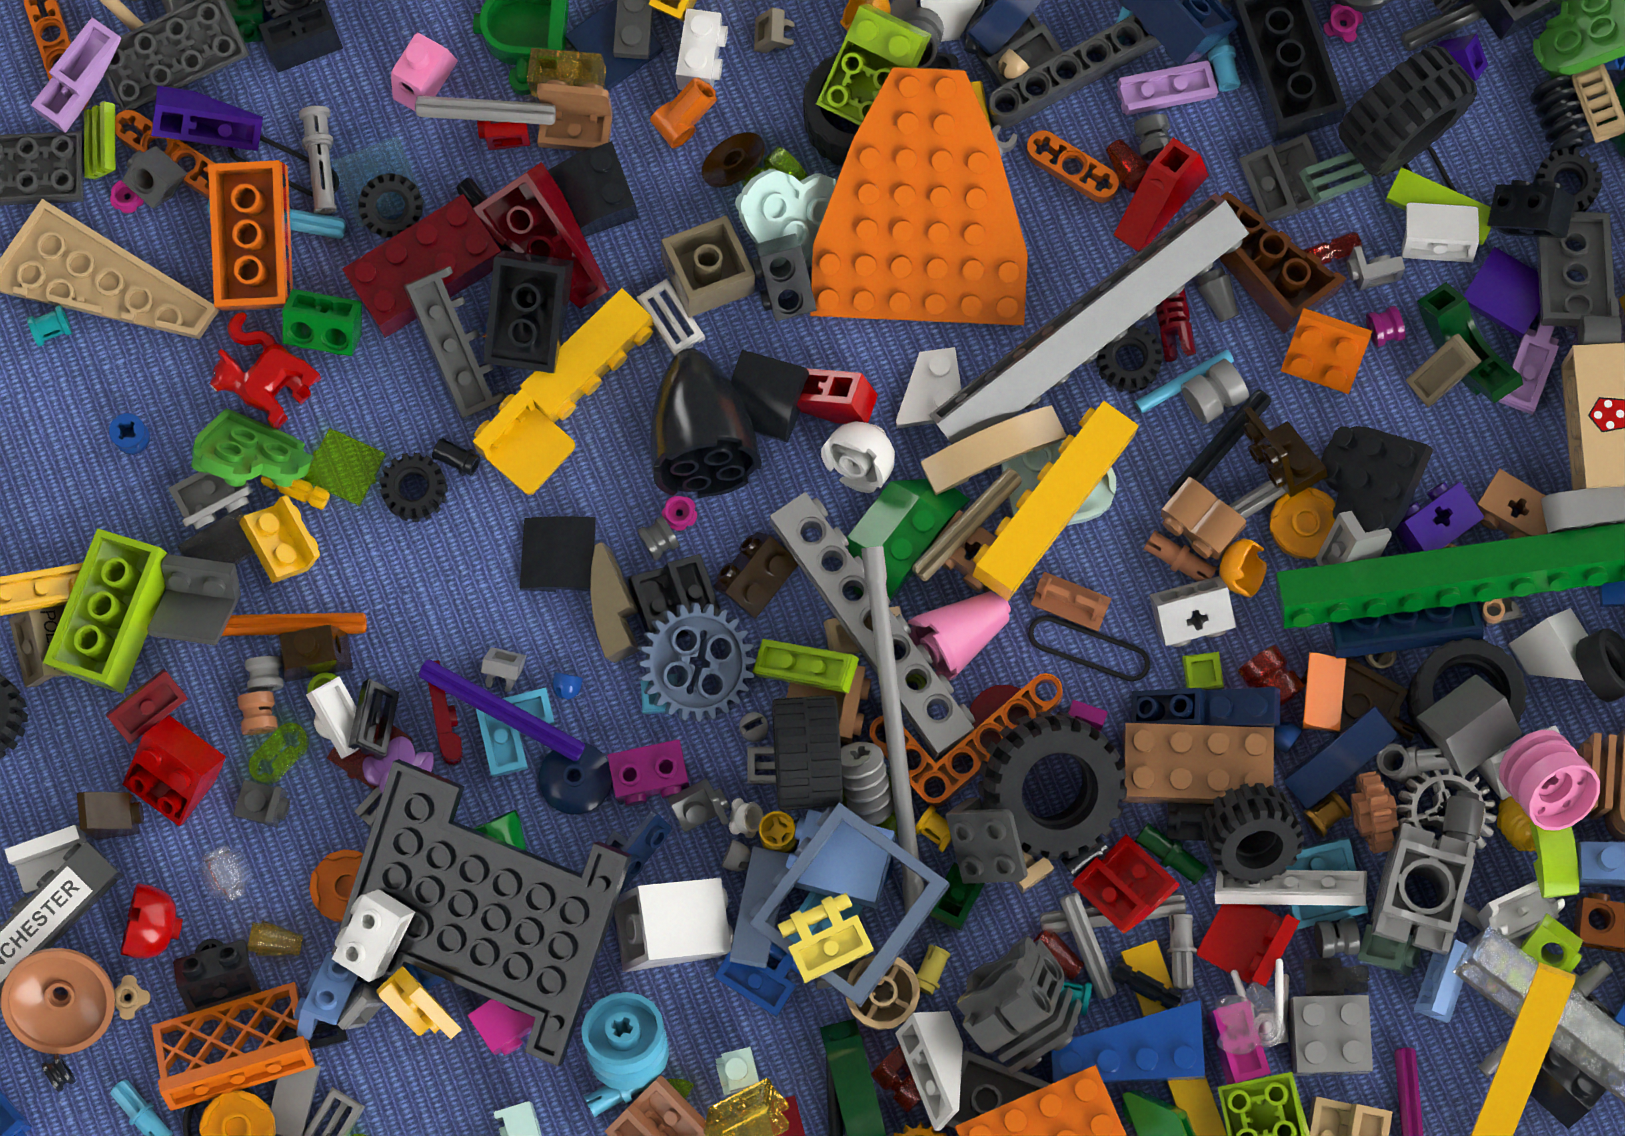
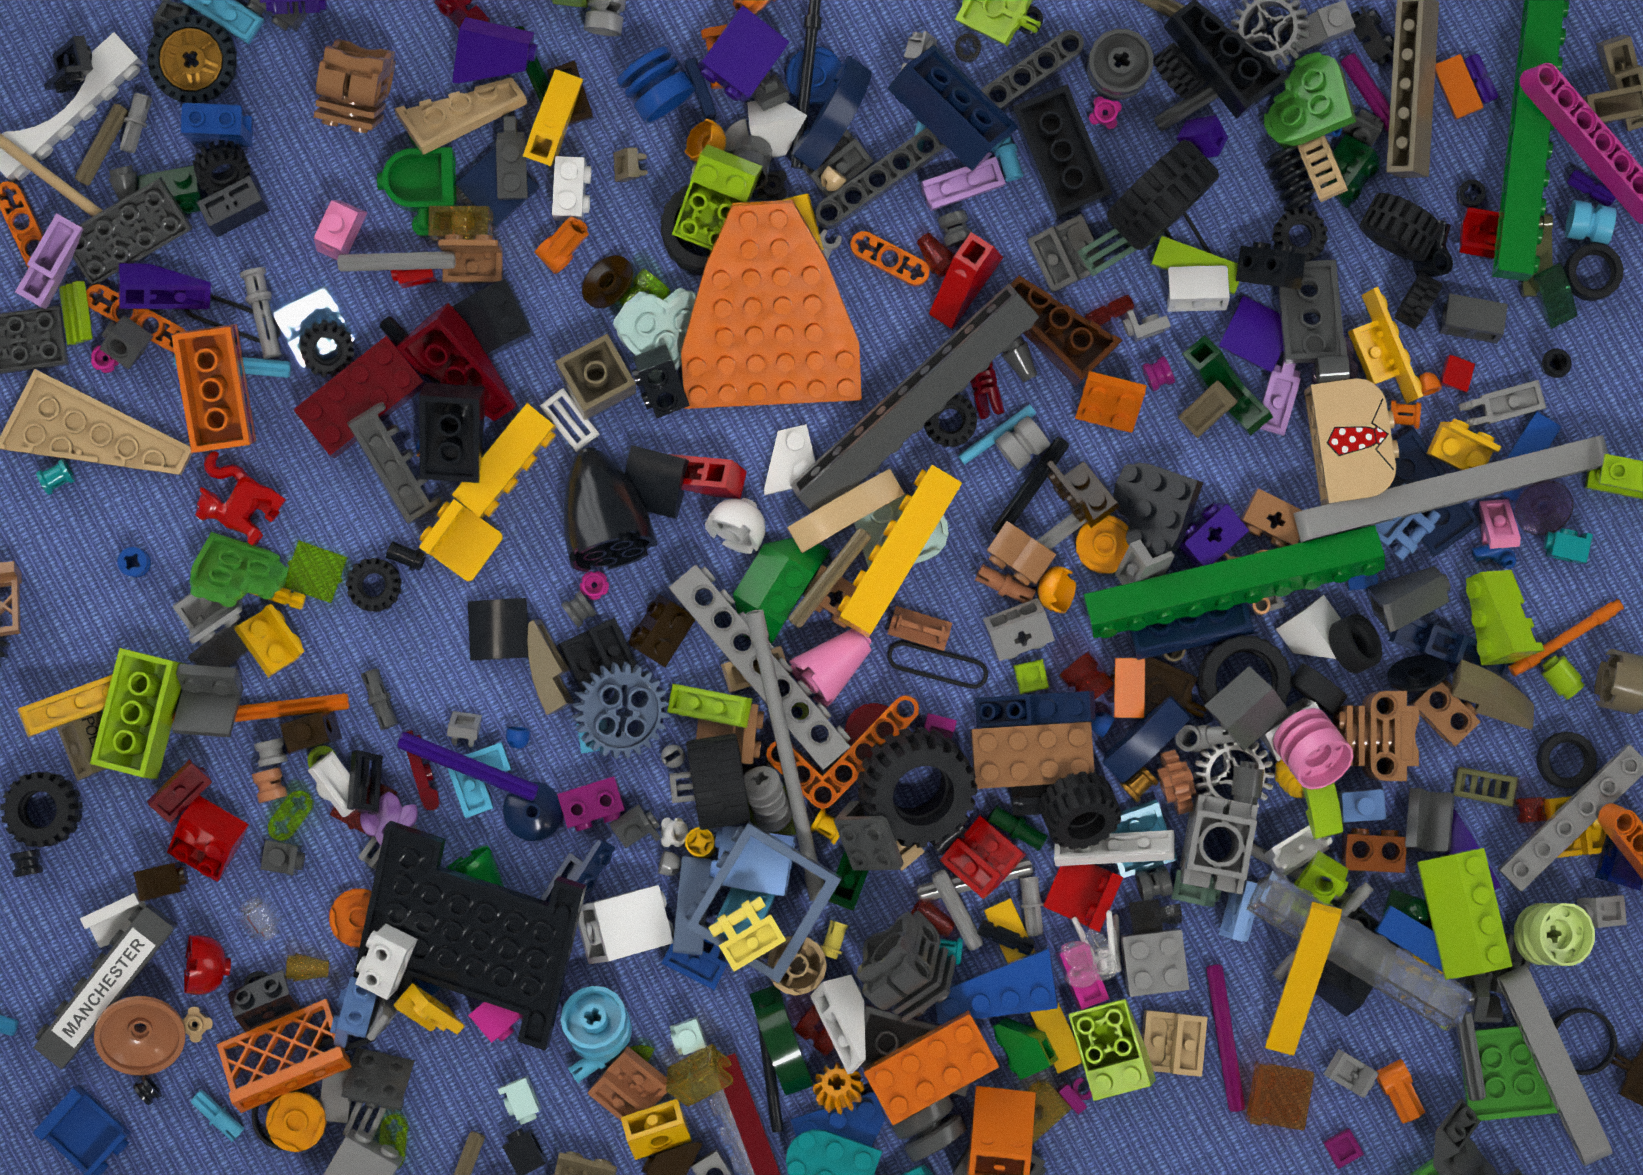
camera: 10 degrees left, 10 degrees up
(322, 322) = (282, 454): green brick -> none
(345, 1087) = (378, 1079): none -> dark grey hinge
(403, 623) = (379, 699): none -> dark grey pin
(1552, 707) = (1318, 689): none -> black tyre

